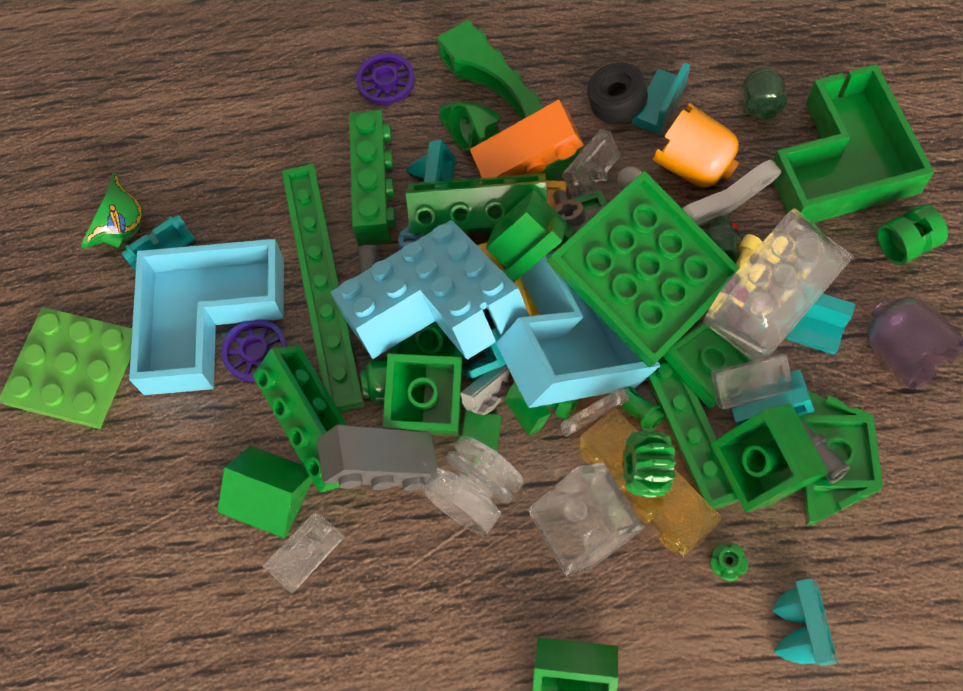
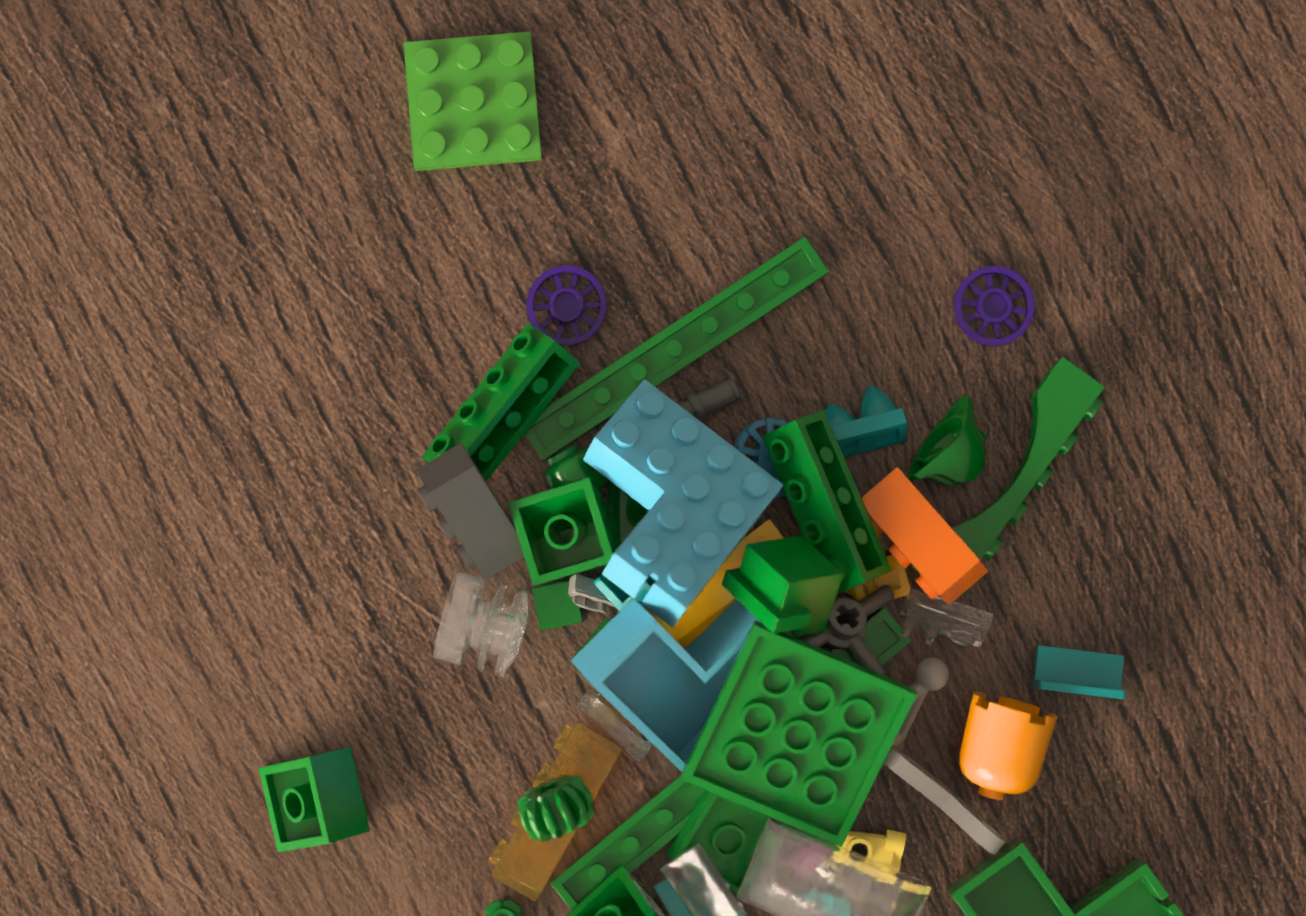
camera: 65 degrees right, 20 degrees up
(116, 218) = (674, 62): green hat -> none
(169, 234) = (656, 128): teal hinge -> none
(185, 296) = (592, 200): medium azure piece -> none
(263, 490) = (409, 392): slope -> none
(303, 552) = (358, 463): clear plate -> none
(370, 178) = (833, 350): green brick -> none
(585, 523) = (485, 757): clear piece -> none
(621, 107) = (1080, 599): black tyre -> none
(642, 410) = (644, 776): green pin -> none
(725, 235) = (888, 809): clear green animal -> none
(764, 93) = (1123, 803): clear green head -> none

